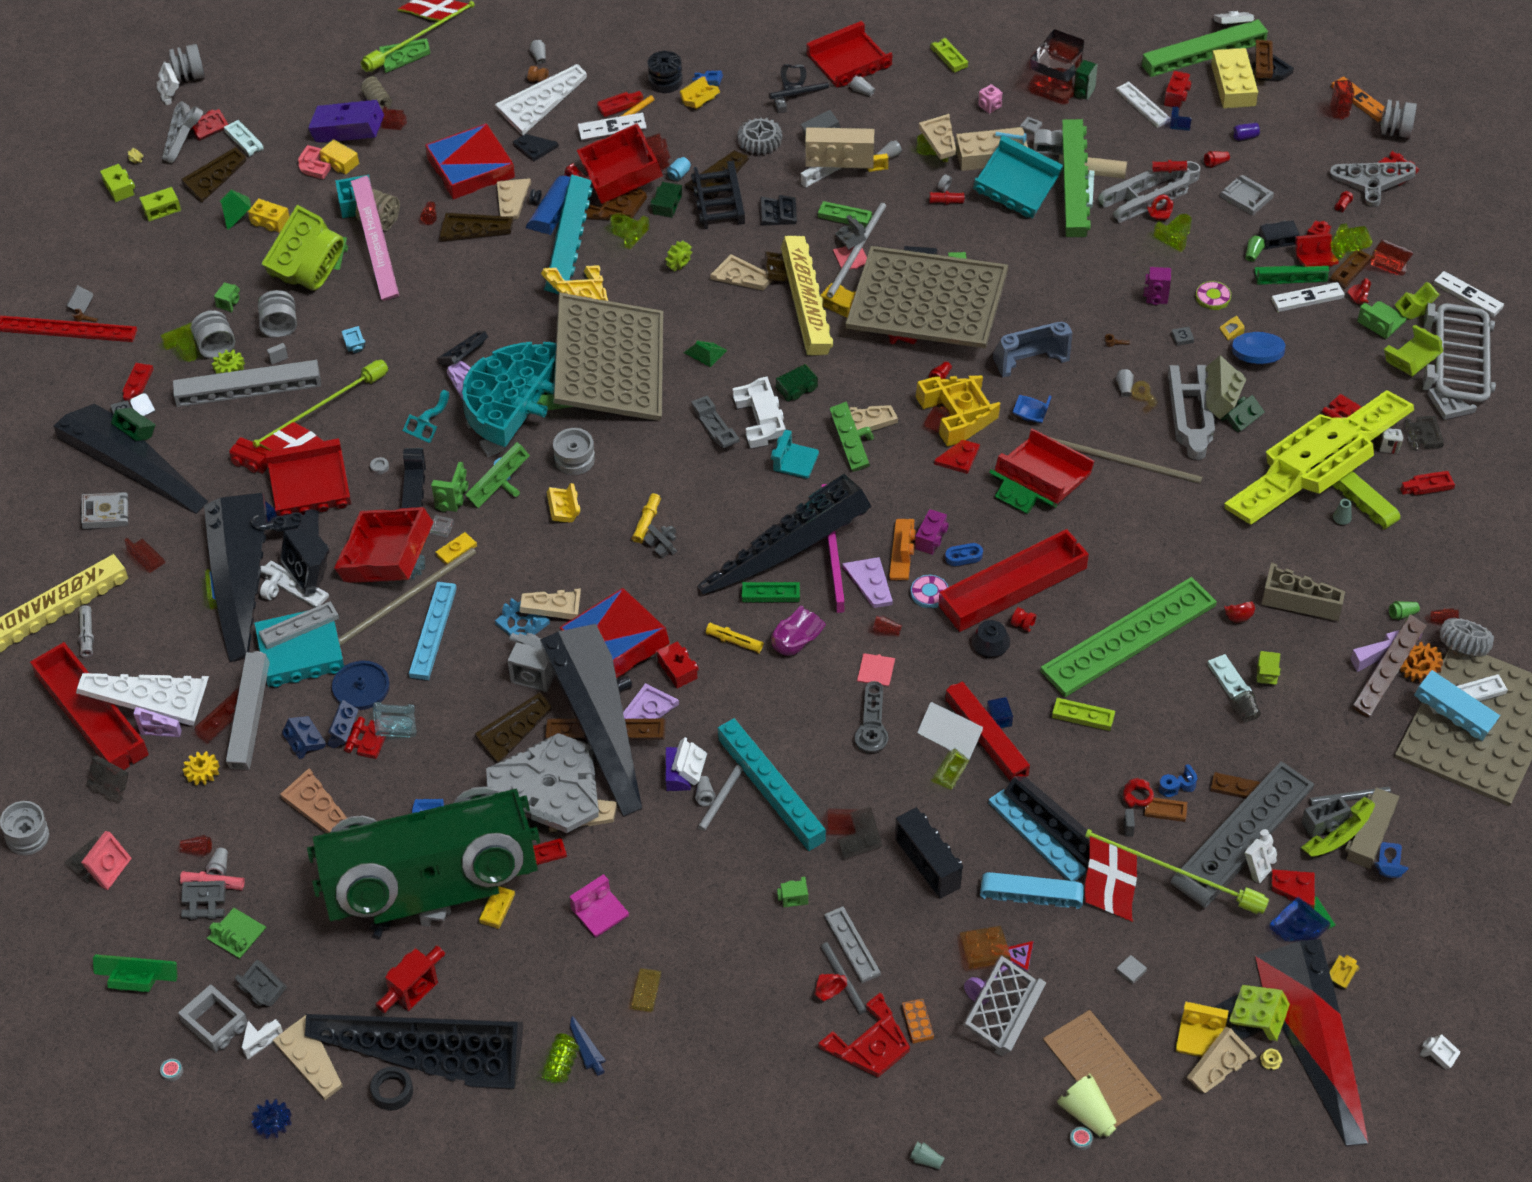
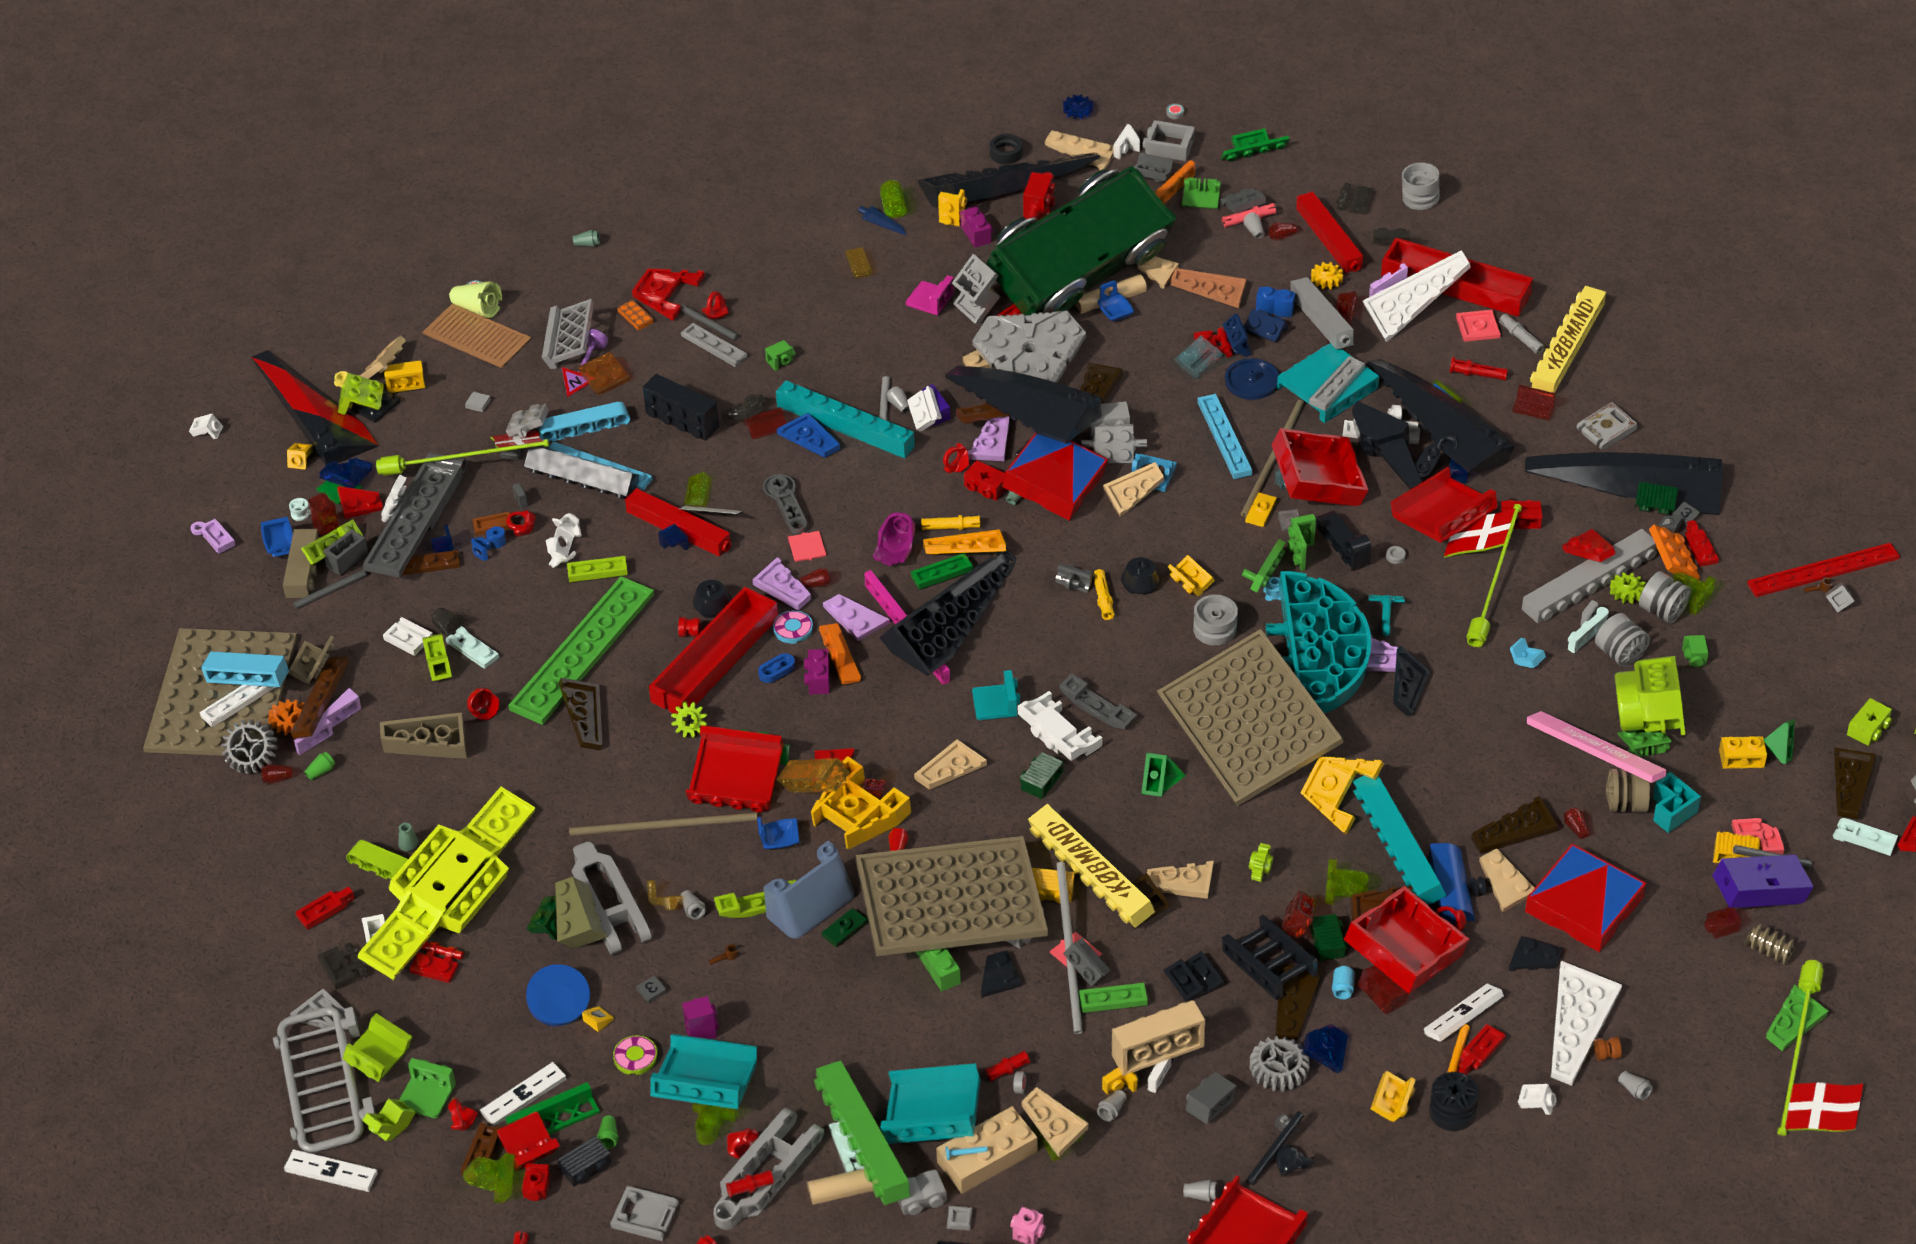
camera: 155 degrees right, 5 degrees down
(106, 860) = (1336, 188): coral plate -> none
(113, 659) = (1478, 325): none -> coral tile
(155, 820) = (1329, 232): none -> red brick
(163, 614) = (1468, 368): none -> red pin
(167, 371) = (1673, 551): none -> orange plate
(226, 400) = (1589, 546): none -> red wing
(258, 950) = (1176, 182): none -> orange tile
(275, 753) = (1275, 301): none -> blue brick
(293, 339) = (1587, 630): none -> light aqua plate
(322, 137) = (1756, 853): none -> dark grey bar
(498, 978) = (976, 226): none -> magenta brick
(507, 1001) = (950, 207): none -> yellow bracket
(558, 863) = (975, 288): none -> light grey bracket
(605, 519) = (1140, 576): none -> black cone
(607, 64) = (1536, 1097): none -> white bracket
(679, 209) = (1299, 914): none -> clear red brick
(689, 700) = (961, 461): none -> red piece
(712, 77) = (1397, 1129): blue plate -> none
(721, 131) = (1327, 1046): none -> clear blue plate
(726, 604) = (964, 543): none -> light orange wing
(812, 785) = (810, 435): none -> blue wing
(851, 436) = (951, 733): bright green plate -> none
(919, 632) = (782, 585): none -> lavender wing
(987, 419) = (813, 775): none -> clear yellow brick
(1012, 327) = (844, 927): none -> dark green plate
(1062, 523) = (682, 723): none -> lime gear
(1072, 369) = (742, 906): none -> lime slope
(1090, 905) = (527, 420): none -> light grey plate
(1113, 741) = (567, 528): none -> white piece
(1150, 573) = (584, 711): none -> dark brown wing
(1173, 245) = (705, 1071): none -> teal panel
(1225, 798) = (443, 543): none -> clear blue panel
(1288, 710) = (406, 636): none -> white plate
(1338, 862) = (323, 514): none -> clear red brick
(1361, 892) = (299, 509): none -> light aqua wheel
(1384, 710) = (310, 661): none -> dark tan bracket
(1391, 257) = (436, 1172): clear red panel -> none
(1455, 901) = (214, 534): none -> lavender hinge

